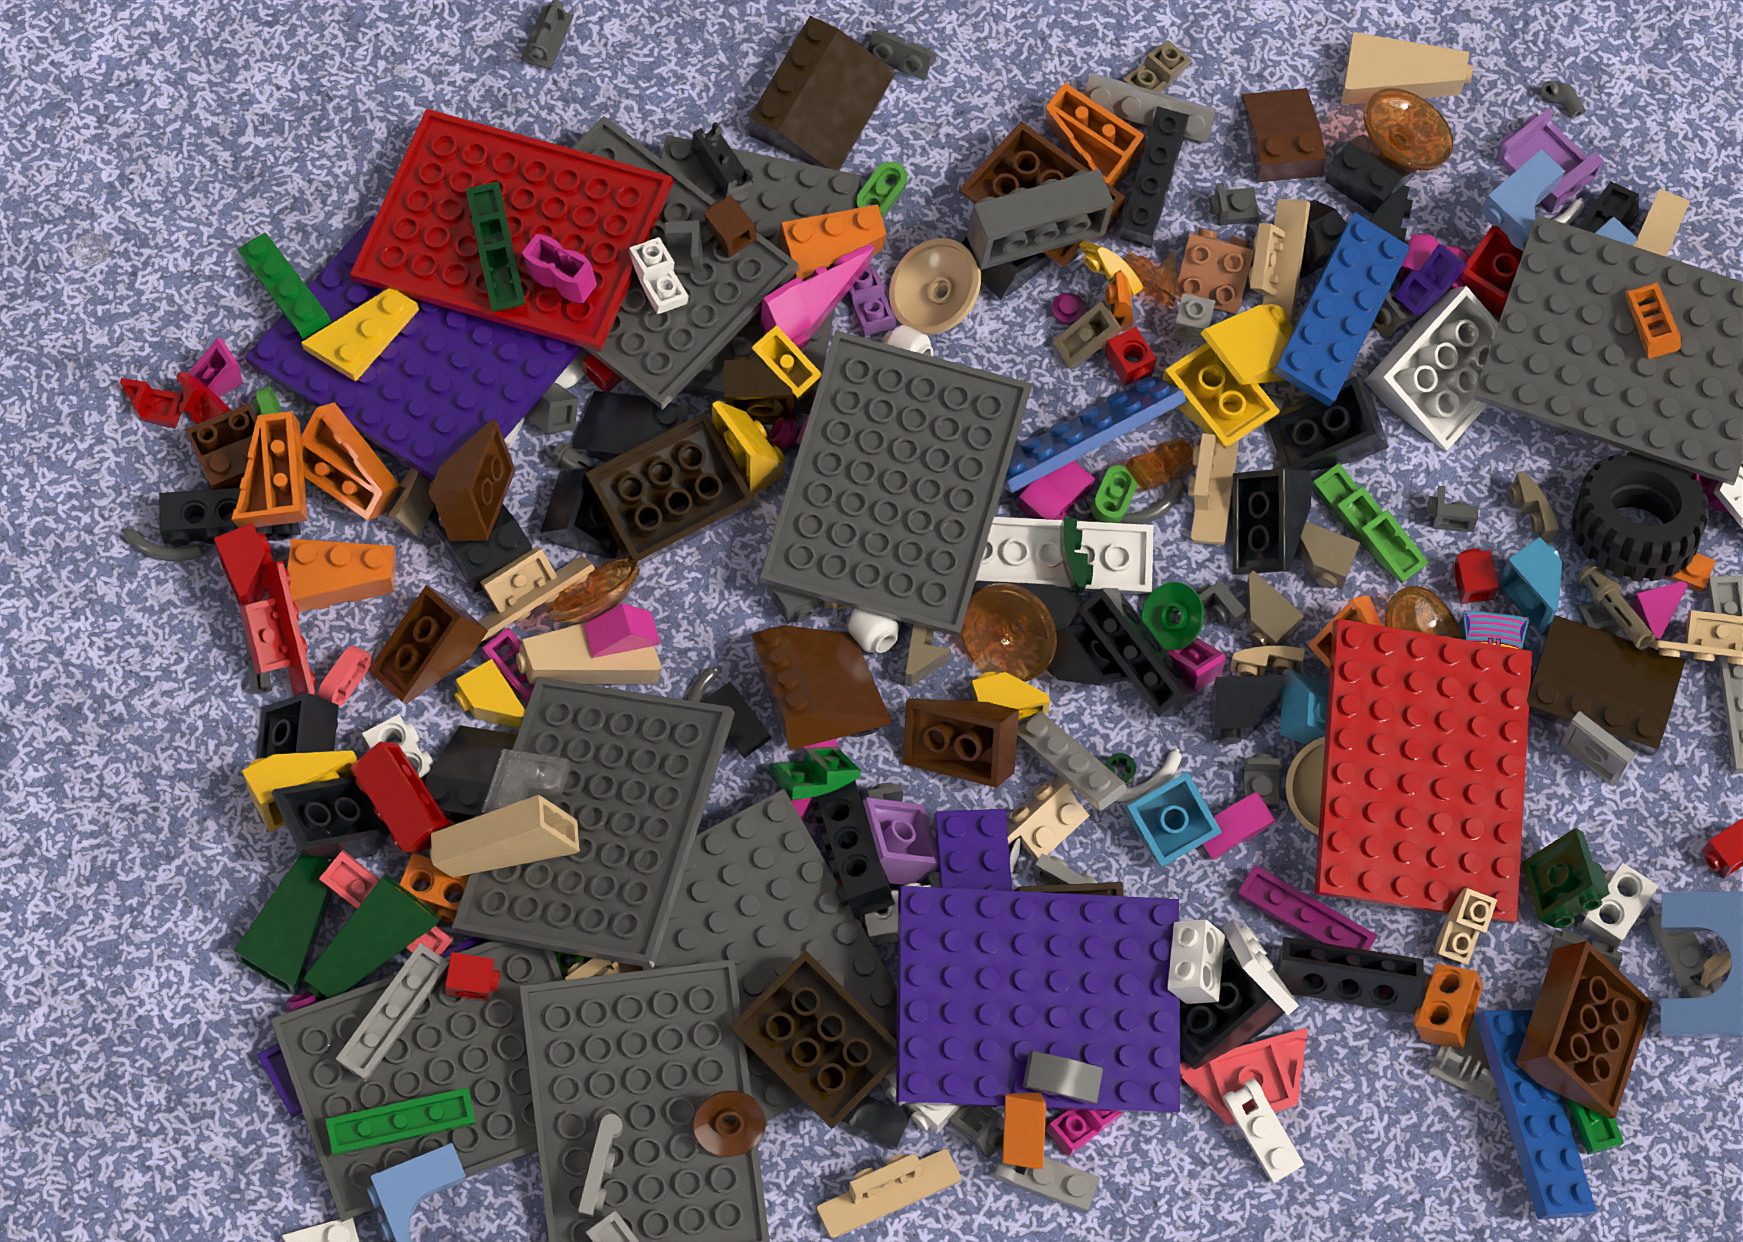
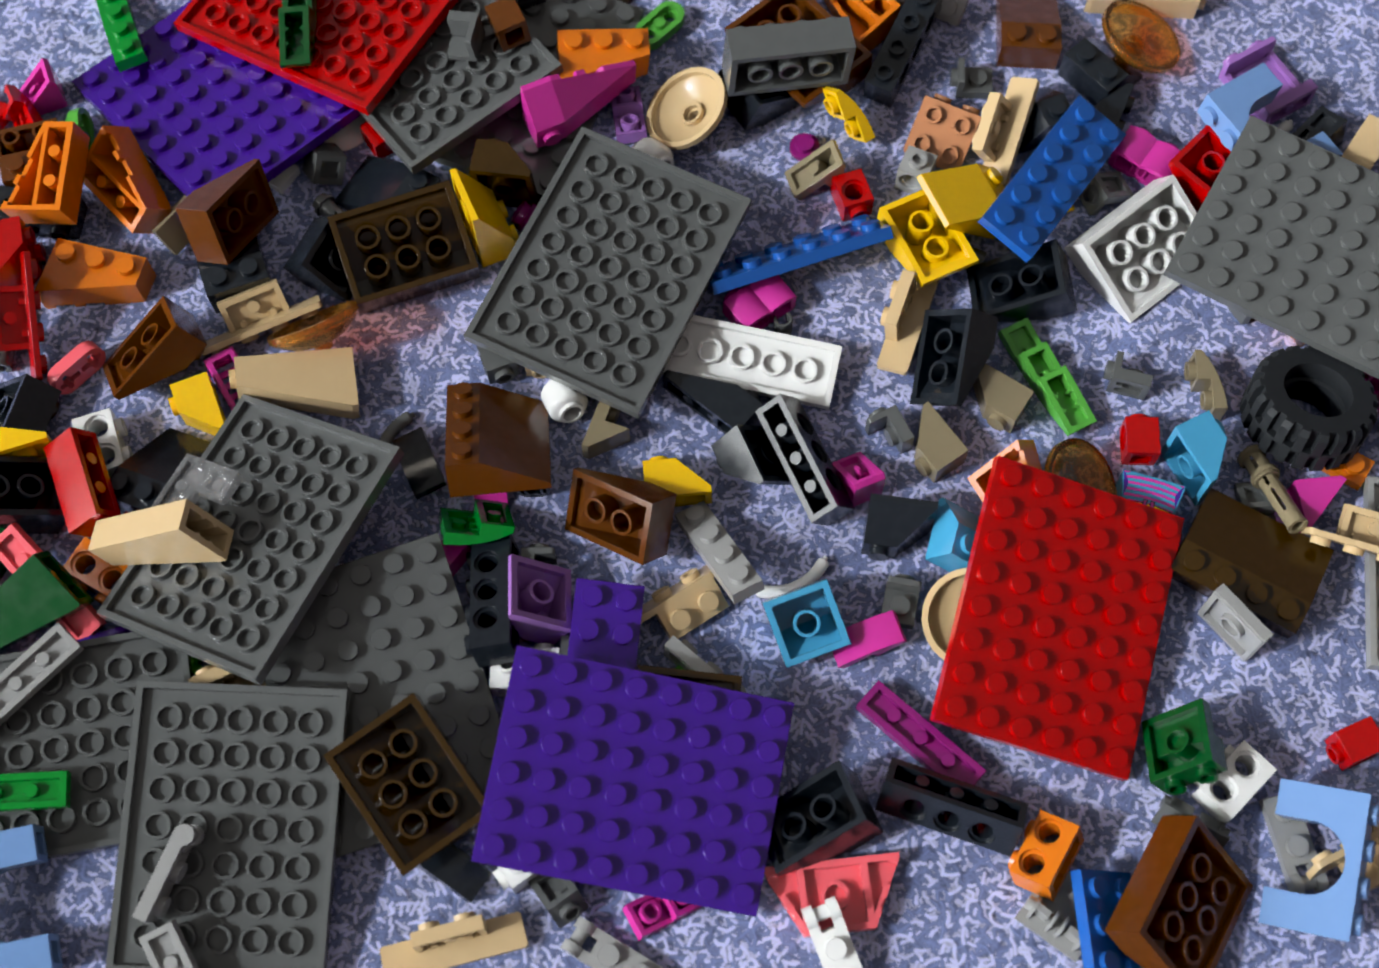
camera: 15 degrees right, 0 degrees up
(362, 334) = (171, 74): yellow wing -> none
(471, 977) = (98, 663): red brick -> none
(559, 268) = (343, 34): dark pink brick -> none
(621, 630) = (327, 363): dark pink slope -> none
(656, 275) = (434, 57): white slope -> none
(731, 1136) = (299, 863): reddish brown dish -> none
(787, 362) = (533, 149): yellow slope -> none
(997, 642) = (674, 425): clear orange dish -> none
(1014, 854) = (648, 633): white sticker -> none
(1024, 1130) = (593, 910): orange slope -> none
(1062, 1077) = (640, 864): dark grey slope -> none
(1074, 563) = (761, 367): dark green slope -> none
(1113, 497) = (808, 318): bright green plate -> none
(1119, 296) = (851, 138): orange slope -> none
(1126, 760) = (777, 567): dark green bush -> none
(1159, 282) = (889, 135): clear orange slope -> none
(1160, 508) = (851, 334): dark grey piece -> none
(1161, 465) = (861, 296): clear orange slope -> none
(1161, 610) = (836, 426): green dish -> none
(1196, 961) = (799, 768): white brick -> none
(1254, 660) = (917, 484): tan slope -> none
(1257, 965) = (859, 783): white wing -> none
(1428, 284) = (1137, 170): dark purple slope -> none
(1463, 924) = (1073, 775): tan slope -> none
(1564, 95) = (1286, 30): dark grey arm -> none
(1659, 340) = (1352, 244): orange slope -> none

